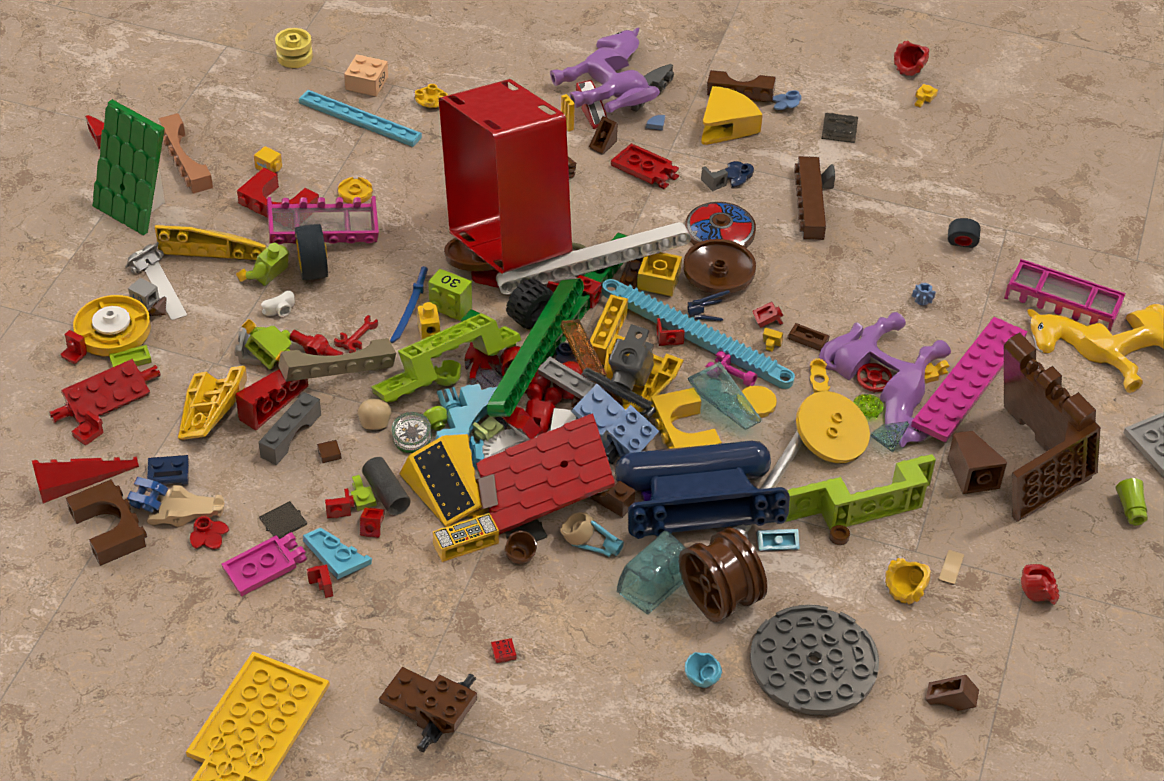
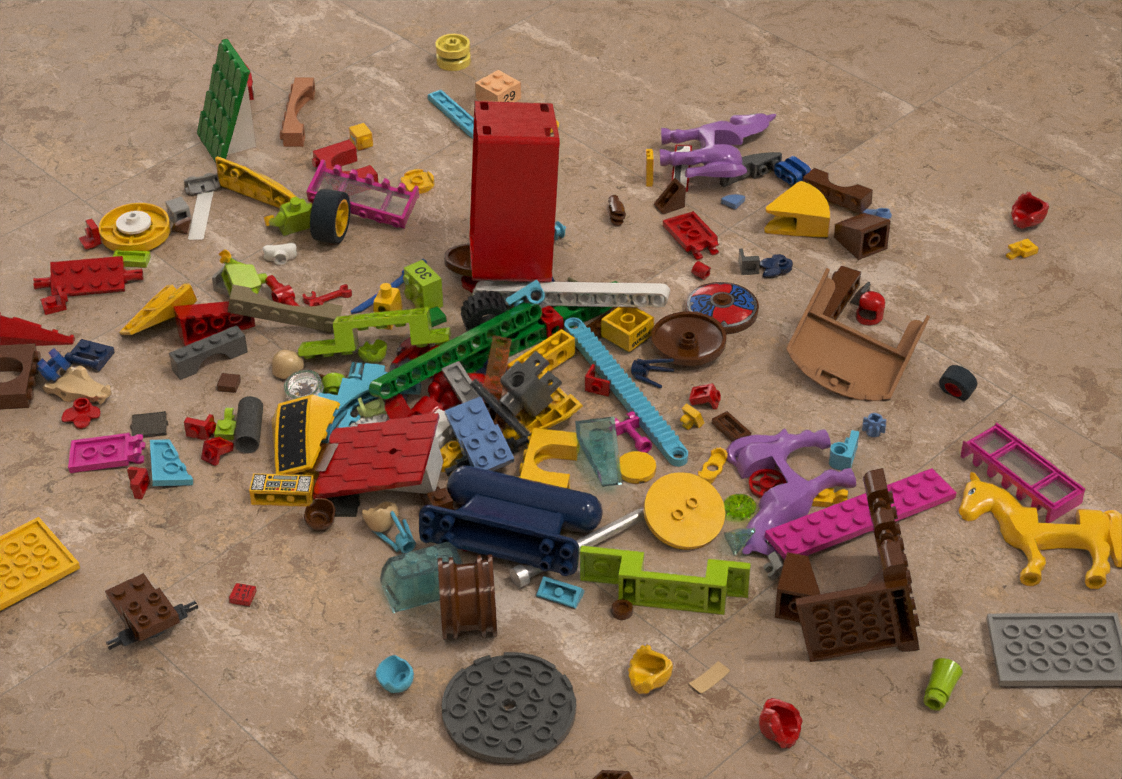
camera: 30 degrees right, 5 degrees down
(561, 270) = (526, 292): none -> medium azure plate
(679, 198) = (701, 270): none -> red hose
(690, 78) = (791, 170): none -> blue brick
(792, 120) = (863, 234): none -> reddish brown slope
(840, 127) = (910, 254): clear smoke plate -> none
(850, 182) = (874, 302): none -> red helmet
(864, 241) = (846, 358): none -> medium nougat windscreen
(918, 328) = (843, 453): none -> medium azure plate
(938, 447) = (775, 565): none -> light grey tile

